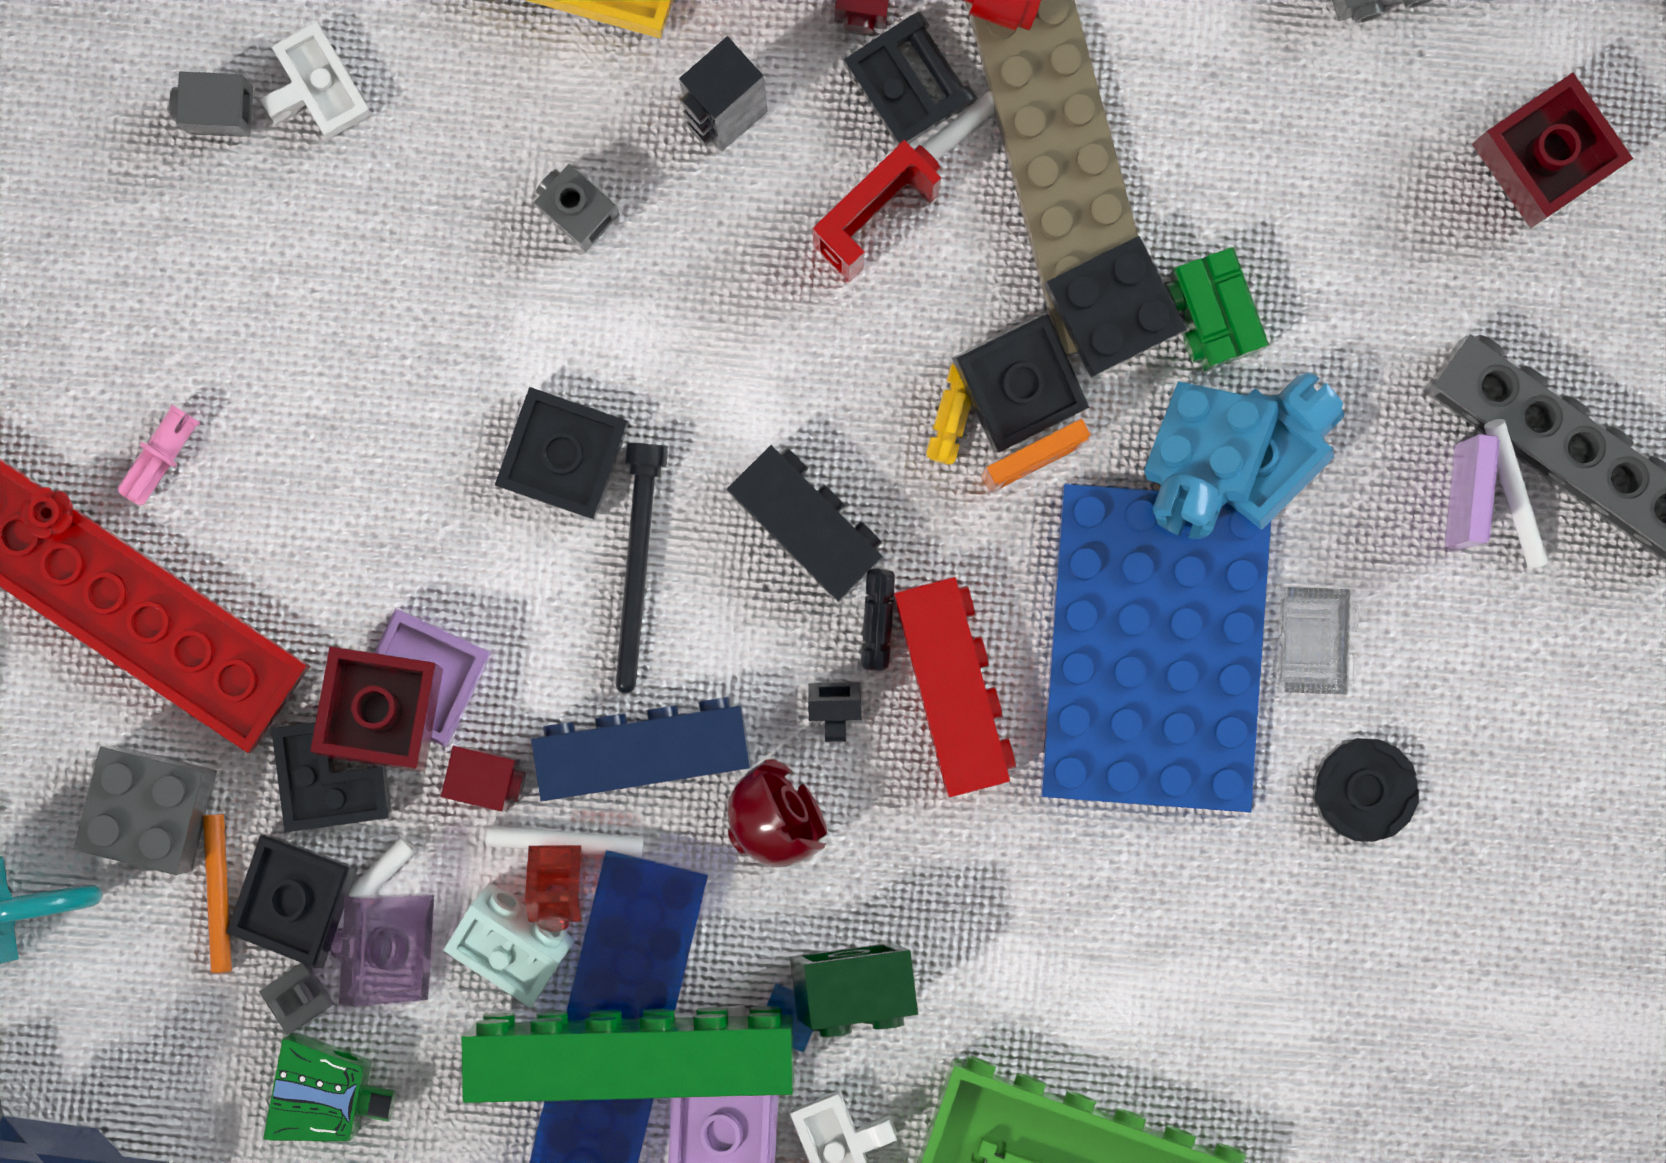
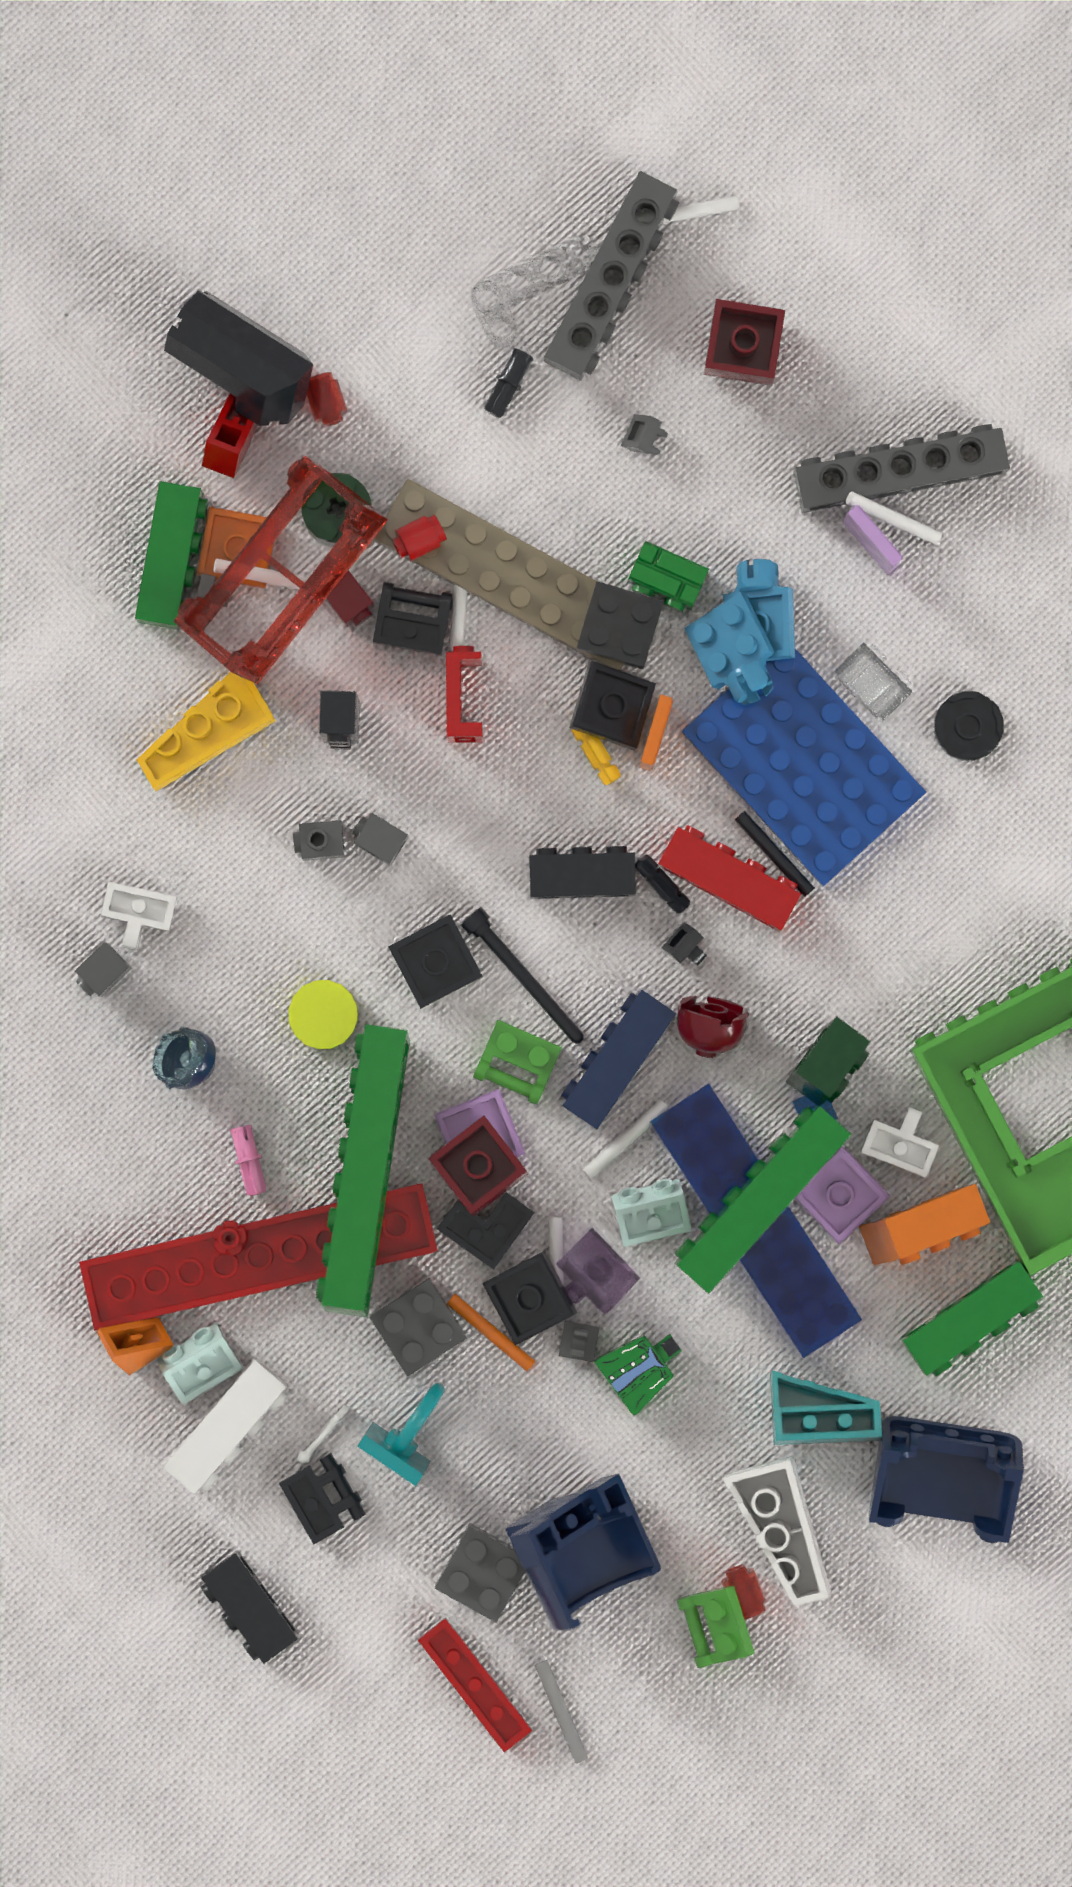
camera: 50 degrees left, 0 degrees up
(199, 282) = (184, 1058): none -> clear light blue hair
(247, 593) = (365, 1170): none -> green brick
(391, 387) = (323, 1014): none -> neon yellow tile
(483, 778) = (559, 1148): dark red brick -> none
(554, 639) = (522, 1051): none -> bright green plate
(554, 885) = (644, 1161): clear red brick -> none
(638, 268) = (379, 838): none -> dark grey brick
(1026, 709) = (774, 853): none -> black bar
(1344, 137) = (642, 434): none -> dark grey tile

